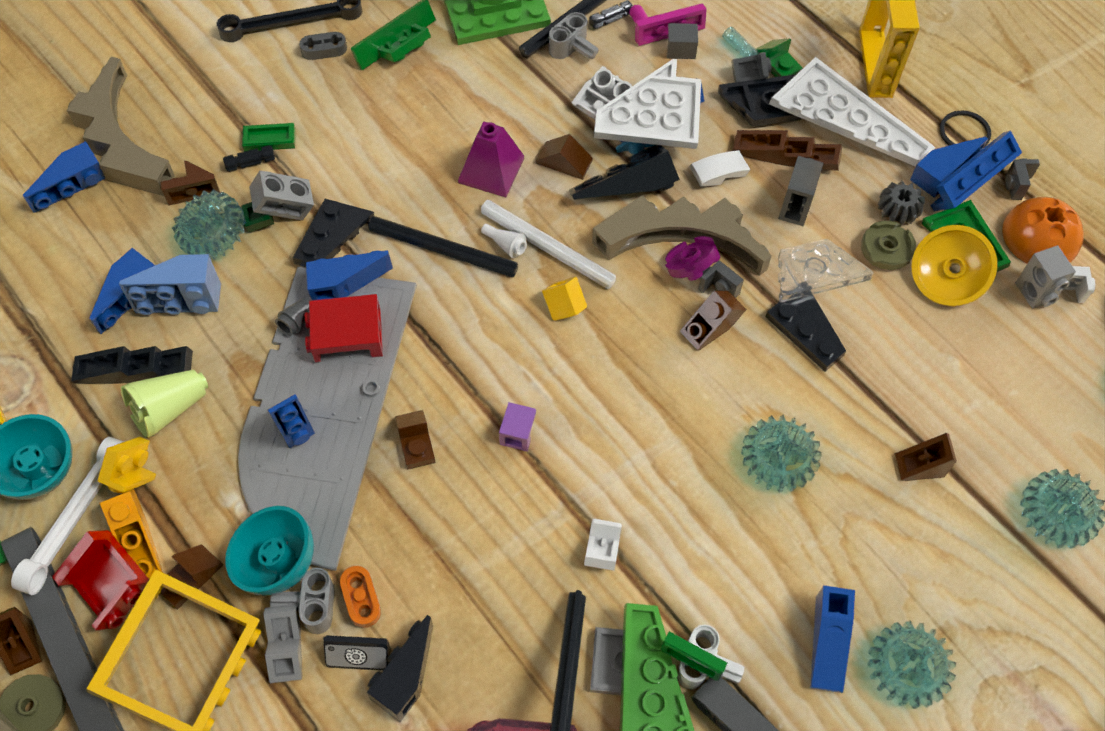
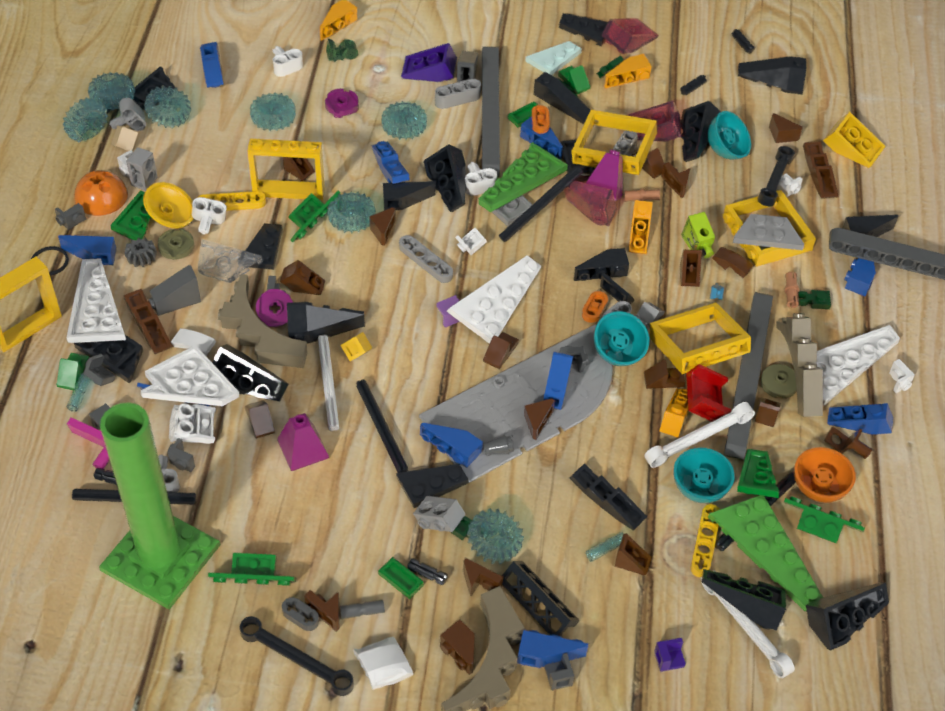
camera: 135 degrees left, 10 degrees down
(32, 163) = (560, 673): none -> dark grey panel
(52, 321) = (632, 556): none -> reddish brown slope
(85, 327) = (603, 548): none -> clear light blue piece
(112, 300) = (570, 545): blue slope -> none
(116, 215) = (543, 593): none -> black fence
(123, 466) = (656, 432): yellow bracket -> none
(153, 120) = (459, 644): none -> reddish brown slope
(162, 399) = (608, 457): yellowish green cone -> none
(175, 287) = (549, 507): medium blue slope -> none
(212, 60) = (384, 663): none -> white slope
(275, 85) = (365, 608): none -> dark grey piece
(285, 375) = (537, 416): none -> reddish brown slope
(299, 57) = (326, 611): none -> reddish brown slope
(315, 485) = (578, 354): none -> dark grey bracket
(344, 326) = (483, 412): red panel -> none
(480, 487) = (493, 303): none -> white wing
(511, 242) = (346, 395): white cone -> none
(578, 65) = (180, 458): none -> dark grey bracket
(628, 483) = (428, 257): none -> light grey beam
(636, 272) = (309, 321): none -> black wedge
(693, 656) = (487, 169): green tile -> none
(724, 468) = (382, 224): none -> reddish brown slope
(754, 634) = (448, 170): none -> black wedge
(759, 534) = (407, 193): none -> black slope
(822, 407) = (307, 213): none -> green bracket
(831, 568) = (389, 163): none -> blue slope
(832, 638) = (419, 147): blue slope -> none
(901, 401) = (286, 148): none -> yellow window
(908, 299) = (208, 213): none -> white beam
(919, 347) = (231, 198): none -> yellow beam
(976, 171) = (90, 226): blue fence -> none
(1007, 627) = (348, 106): none -> magenta plate

